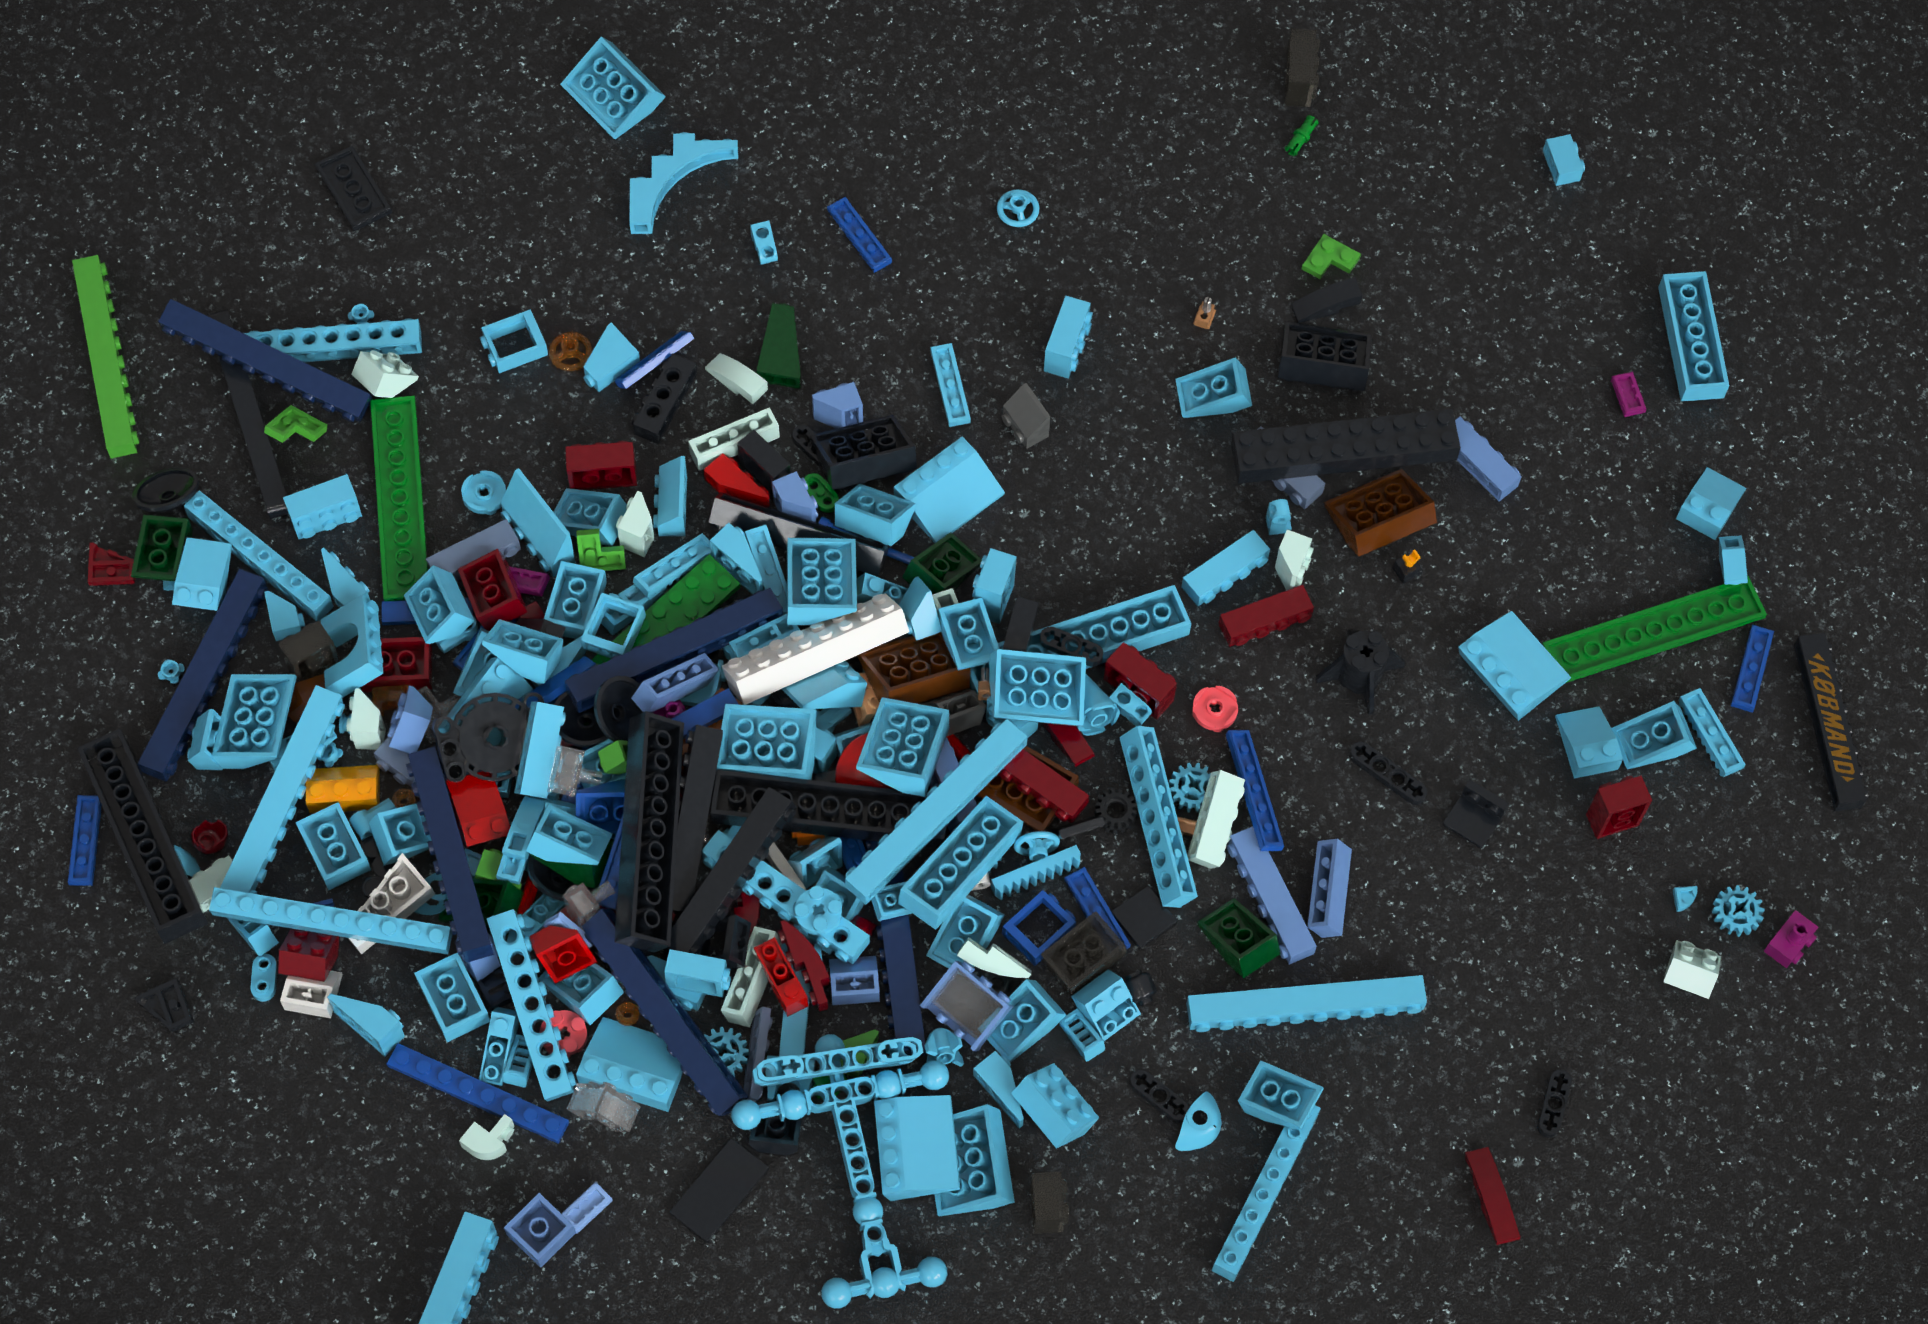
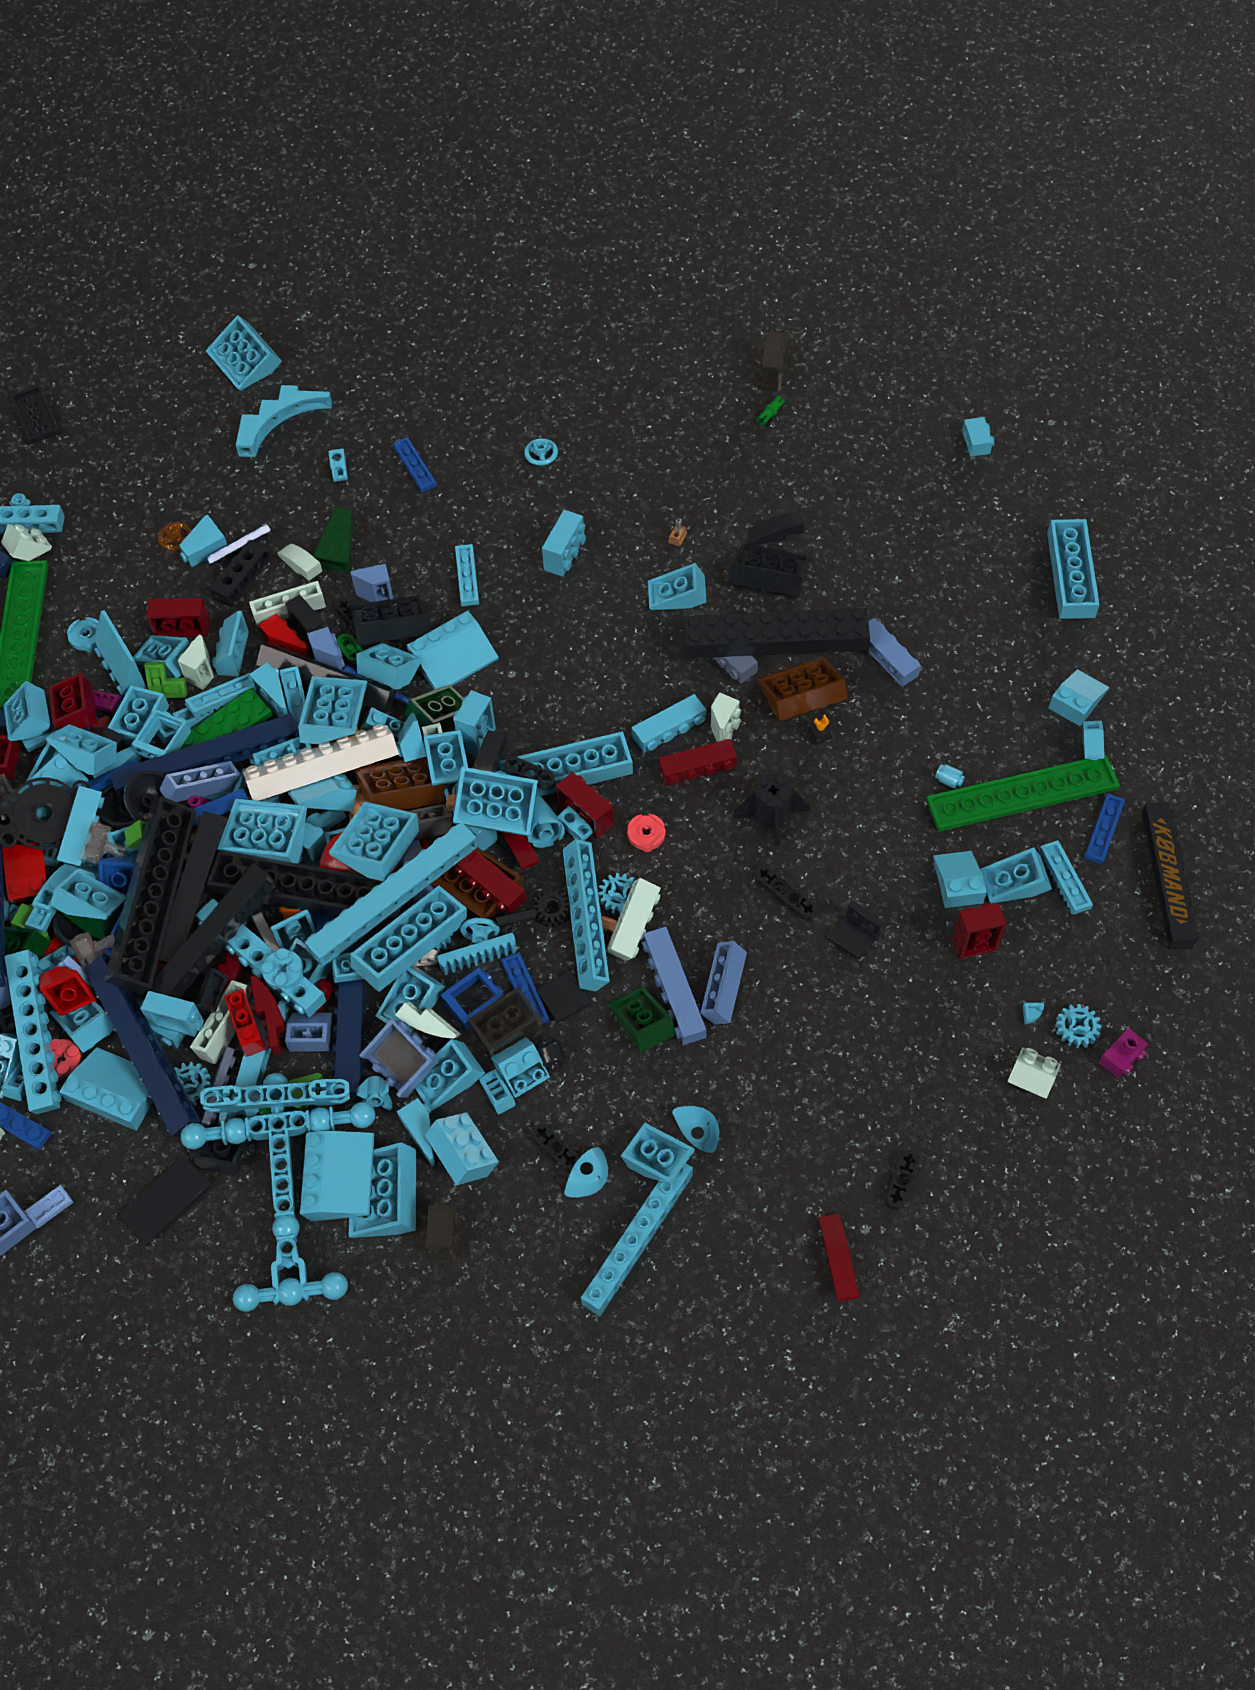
camera: 10 degrees right, 5 degrees down
(495, 537) = (88, 665): sand blue brick -> none
(508, 326) = (128, 515): medium azure window -> none
(604, 1105) = (78, 1119): clear brick -> none
(627, 1007) = (114, 1041): clear orange plate -> none
(1026, 417) = (522, 600): dark grey slope -> none
(1255, 790) = (670, 899): blue tile -> none
(1278, 517) = (716, 684): medium azure leg -> none
(1306, 1003) = (693, 1077): medium azure brick -> none
(1312, 1048) = (691, 1117): none -> medium azure piece
(1329, 252) = (781, 495): bright green plate -> none
(1513, 664) = (900, 812): medium azure slope -> none
(1567, 615) = (950, 776): none -> medium azure brick
(1628, 394) = (1016, 610): magenta plate -> none

